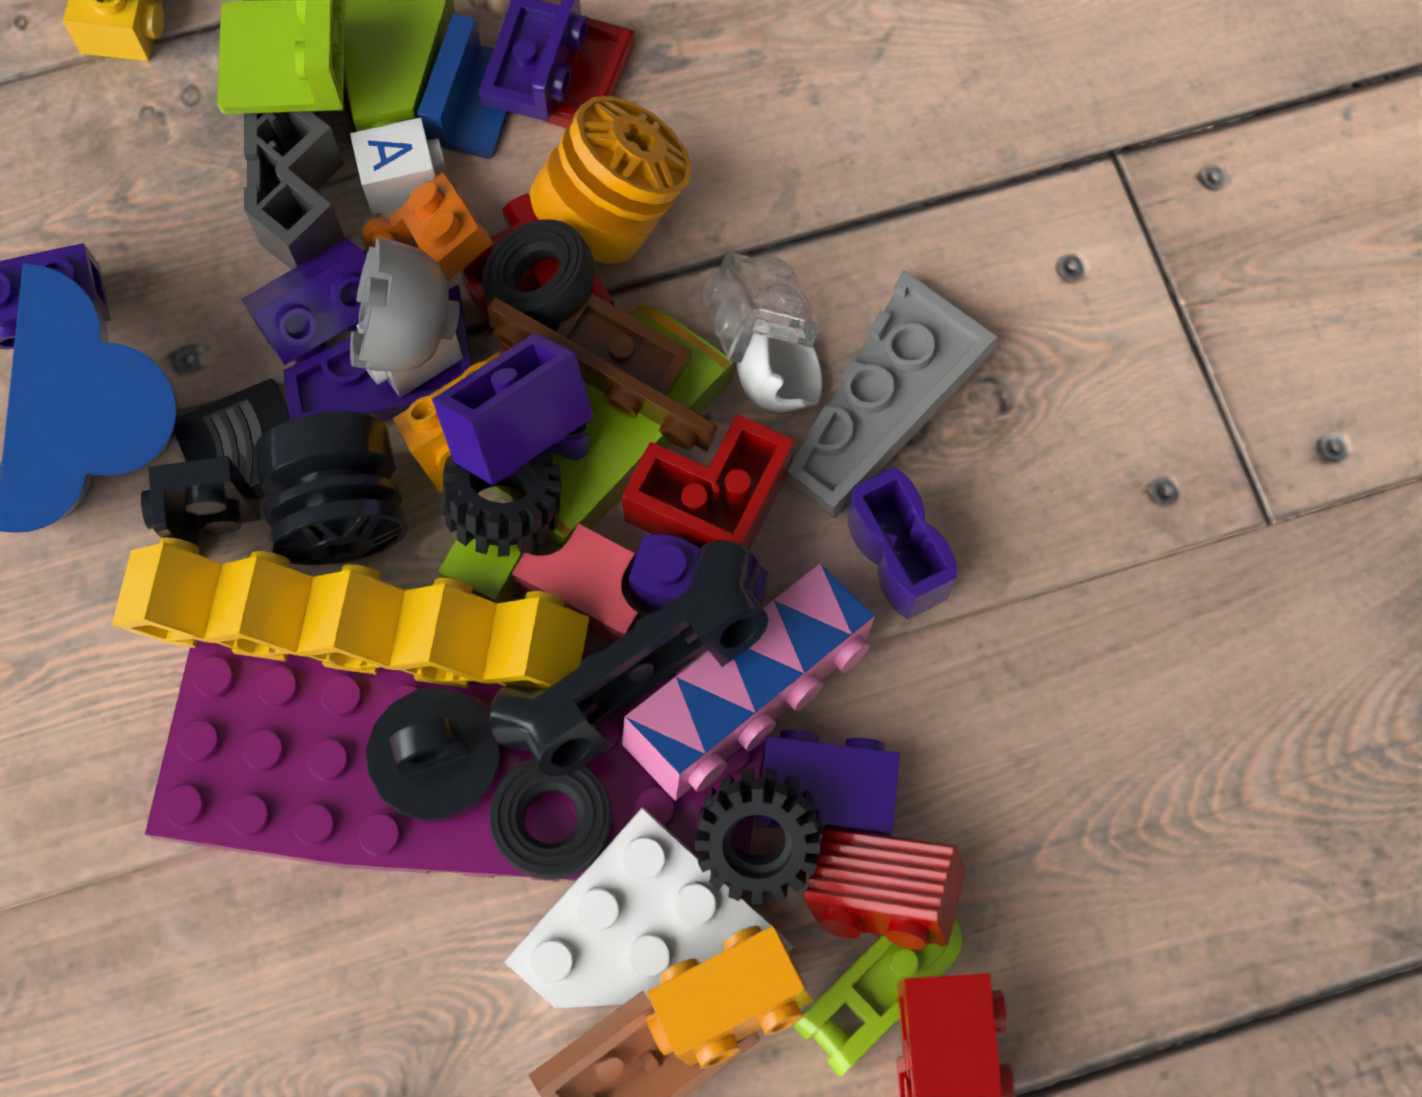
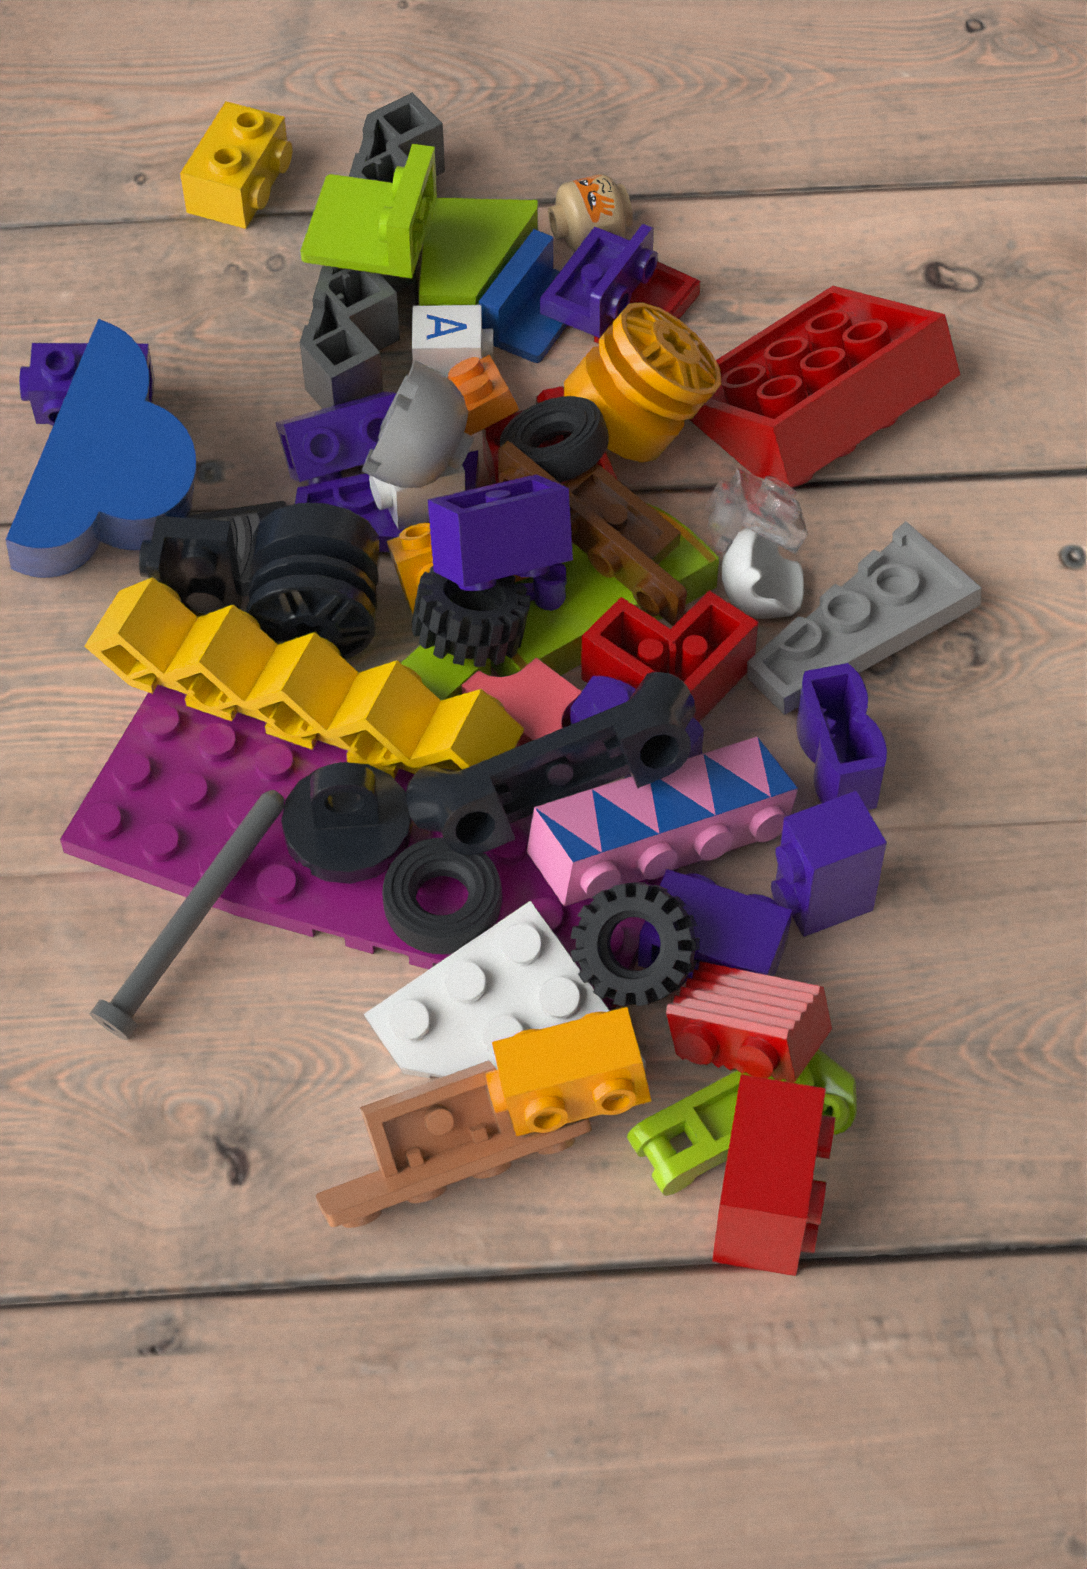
camera: 15 degrees right, 15 degrees down
(257, 1019) = (119, 1012): none -> dark grey bar
(788, 124) = (825, 382): none -> red slope
(923, 692) = (829, 863): none -> dark purple brick
(981, 932) = (840, 1090): none -> lime arm

